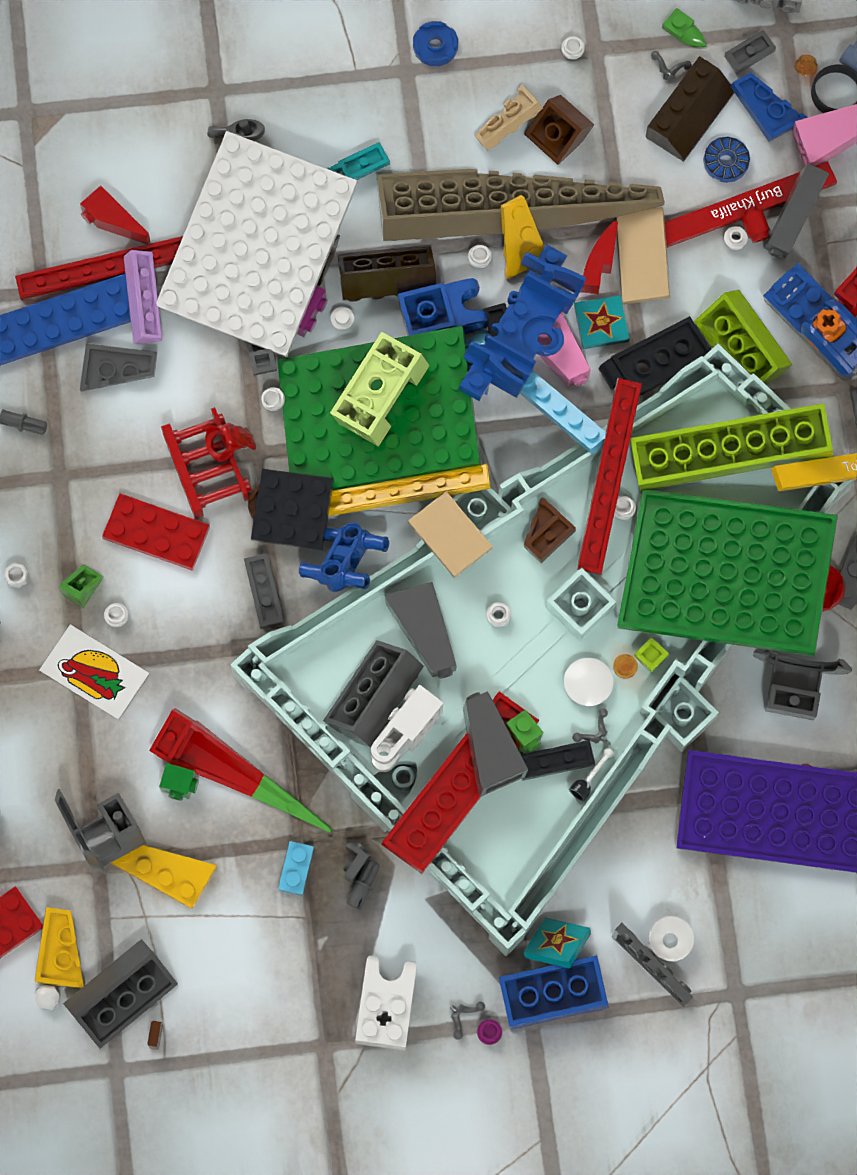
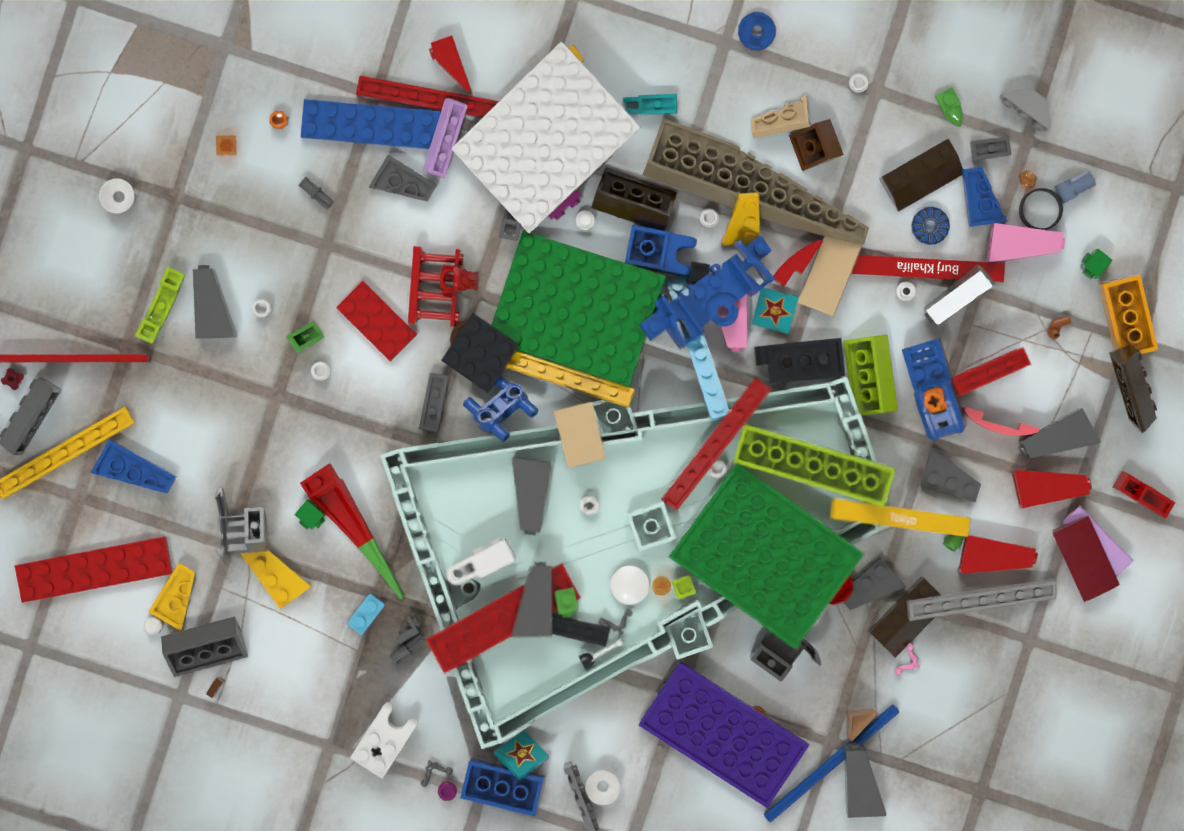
camera: 30 degrees right, 15 degrees up
(94, 671) = (287, 404): sticker -> none
(245, 128) = (579, 36): dark grey piece -> none
(273, 399) = (506, 259): white plate -> none
(365, 409) = (598, 289): yellowish green plate -> none
(373, 693) = (472, 523): dark grey slope -> none
(547, 531) = (653, 461): reddish brown wing -> none
(656, 56) = (918, 117): dark grey piece -> none
(755, 224) = (925, 289): red brick -> none

